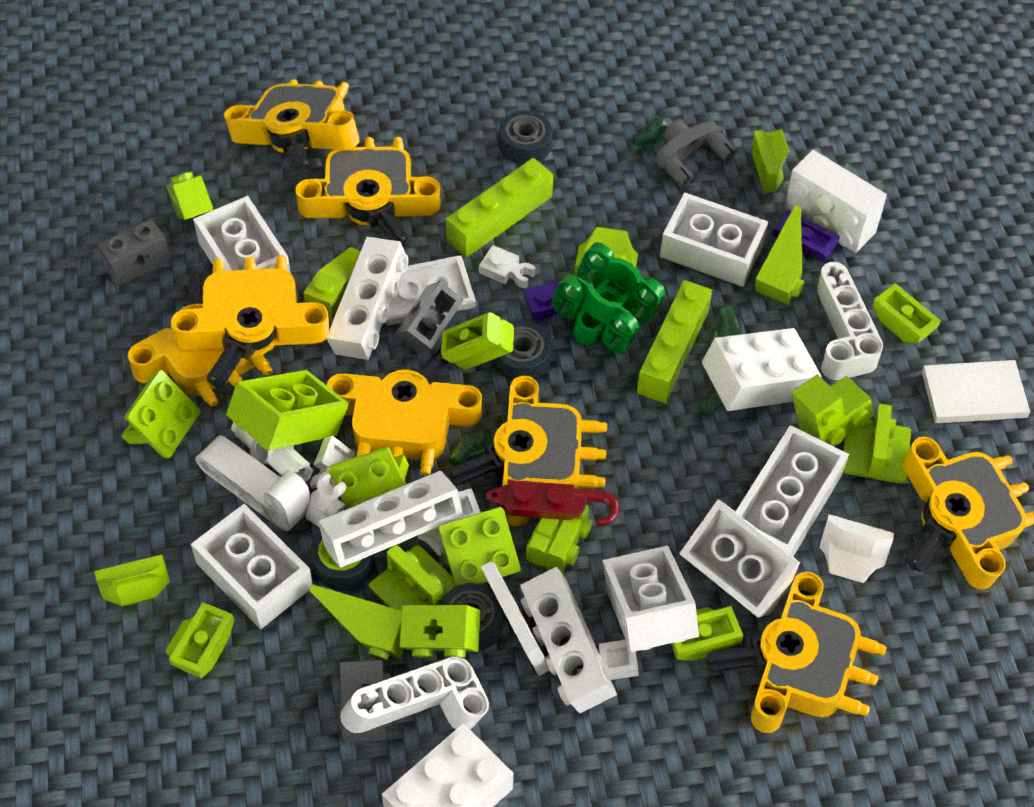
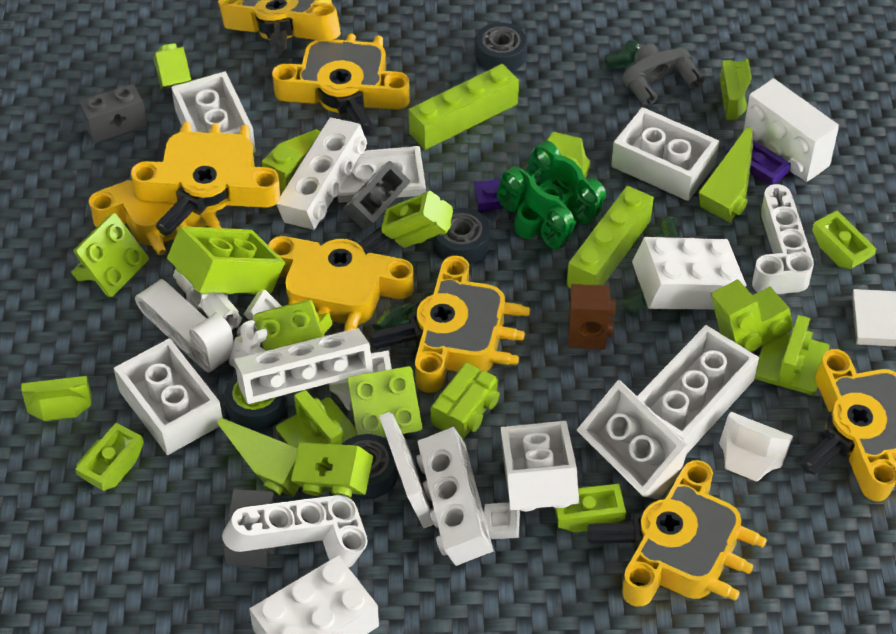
camera: 10 degrees right, 5 degrees down
(502, 265) = (459, 159): white plate -> none
(550, 500) = (460, 368): dark red plate -> none
(671, 427) = (590, 316): none -> reddish brown brick

